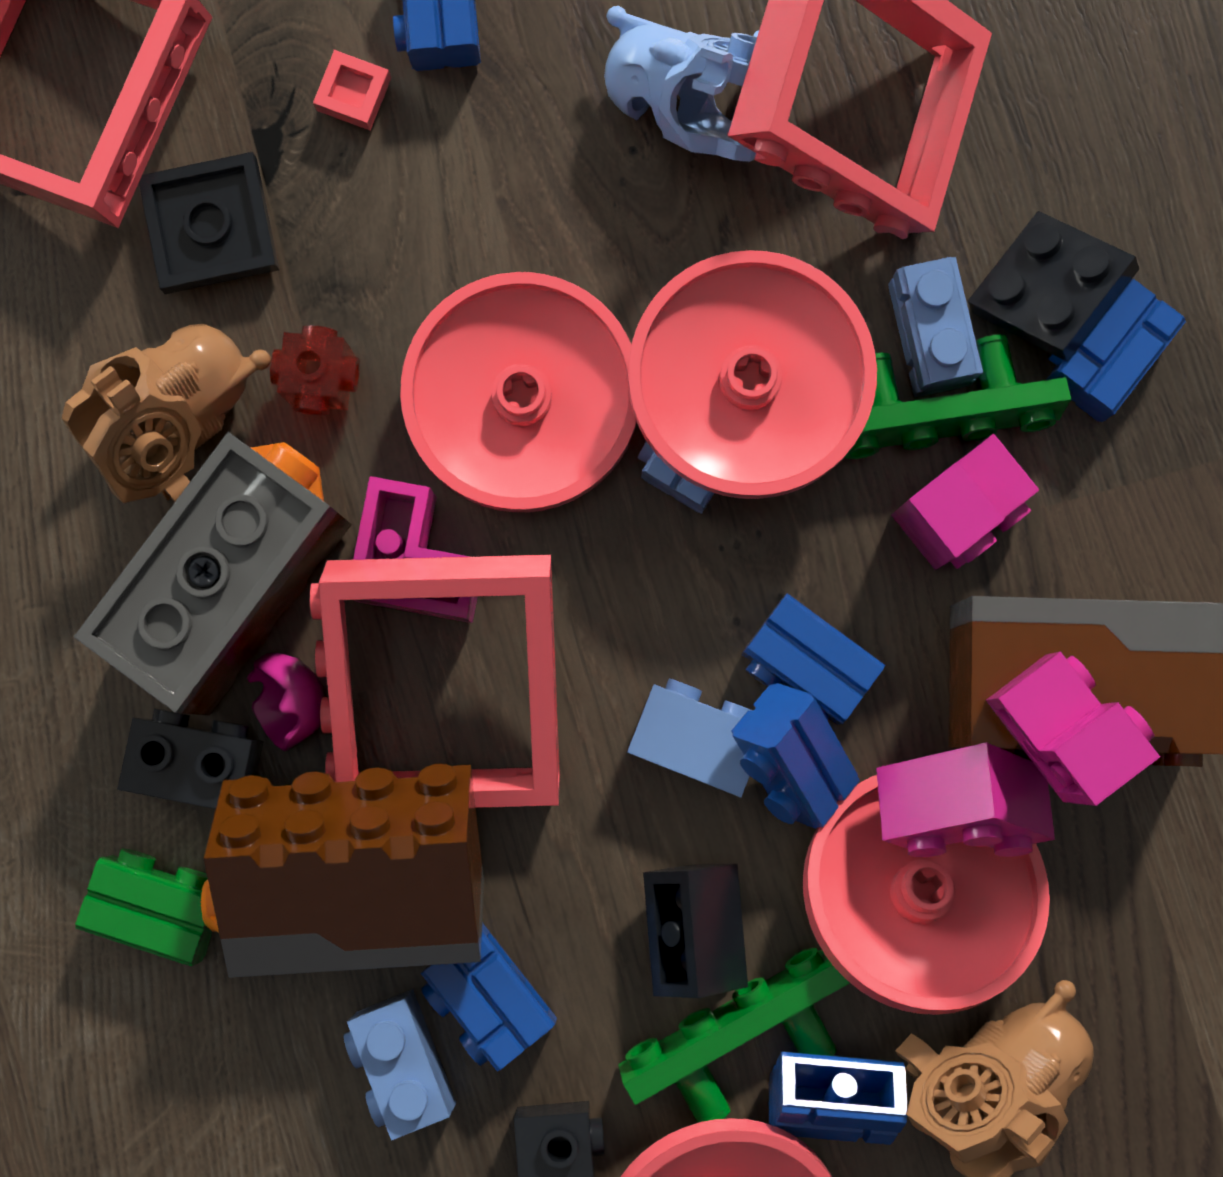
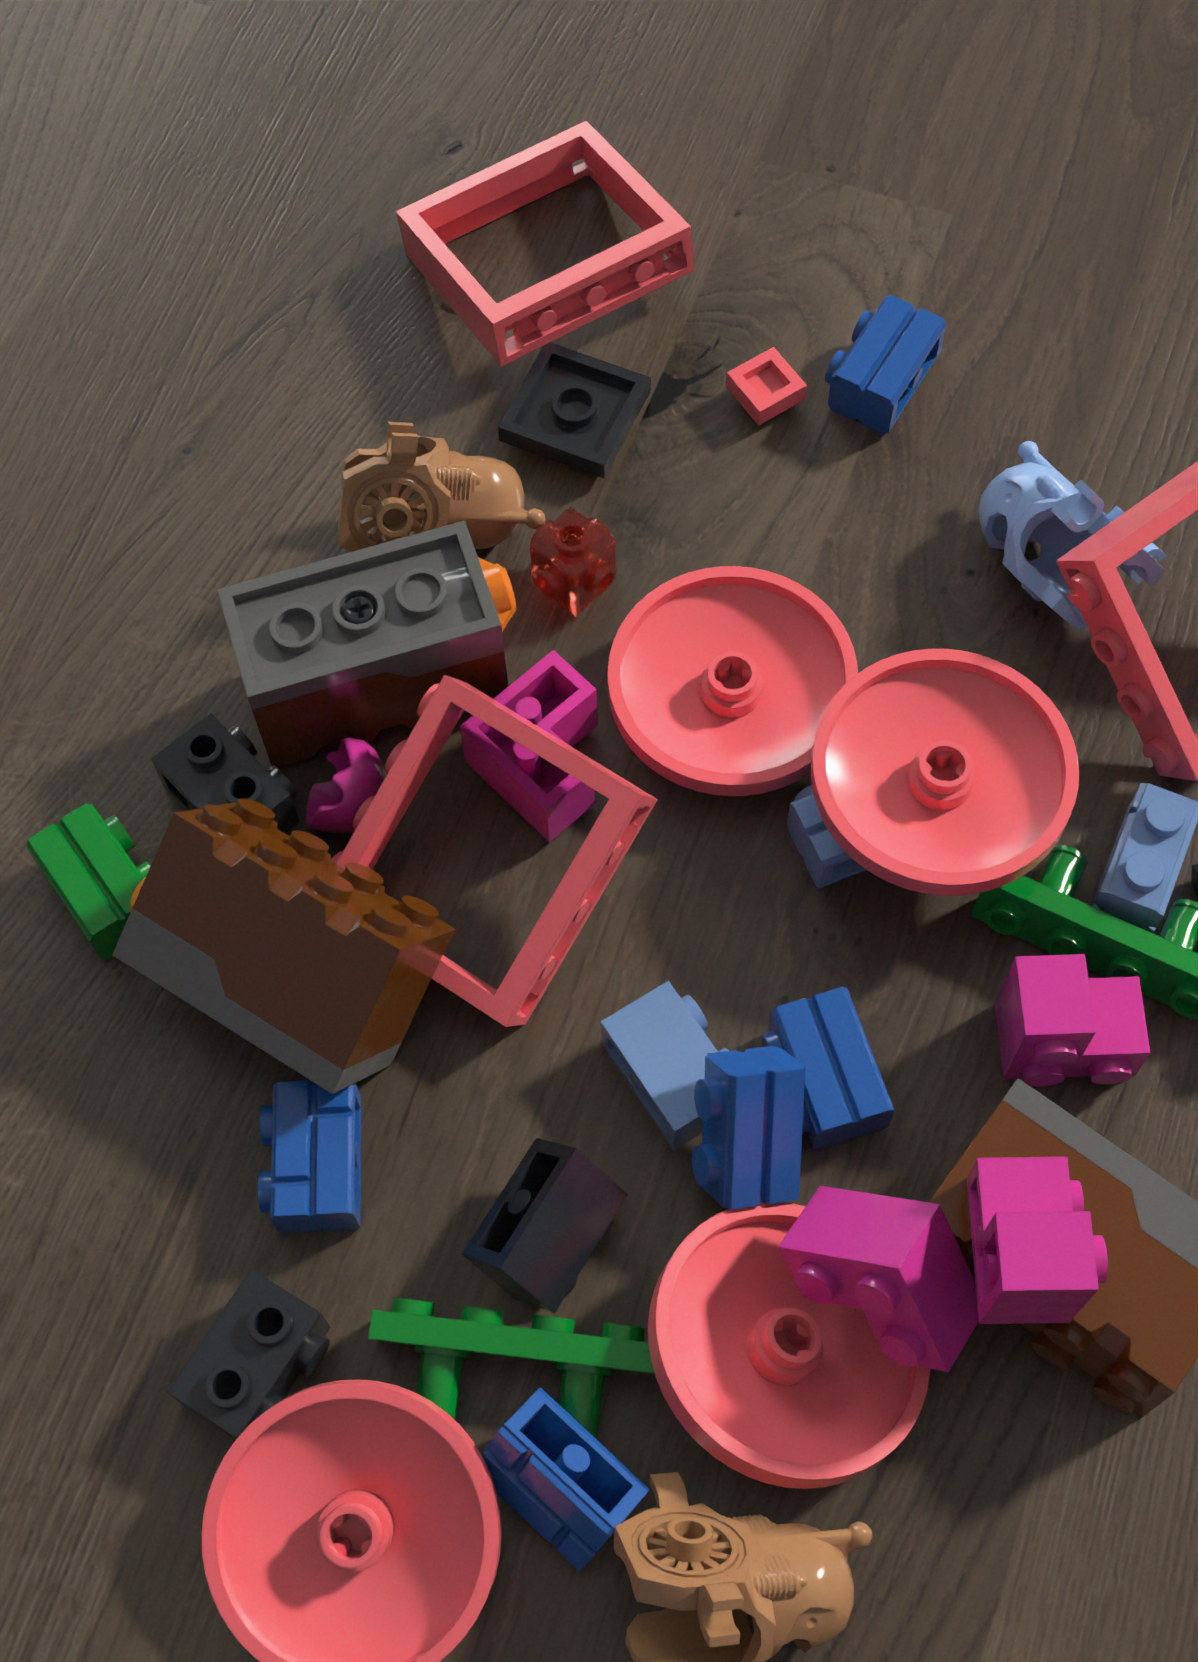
camera: 35 degrees right, 20 degrees down
(400, 1065) = (192, 1156): medium blue brick -> none

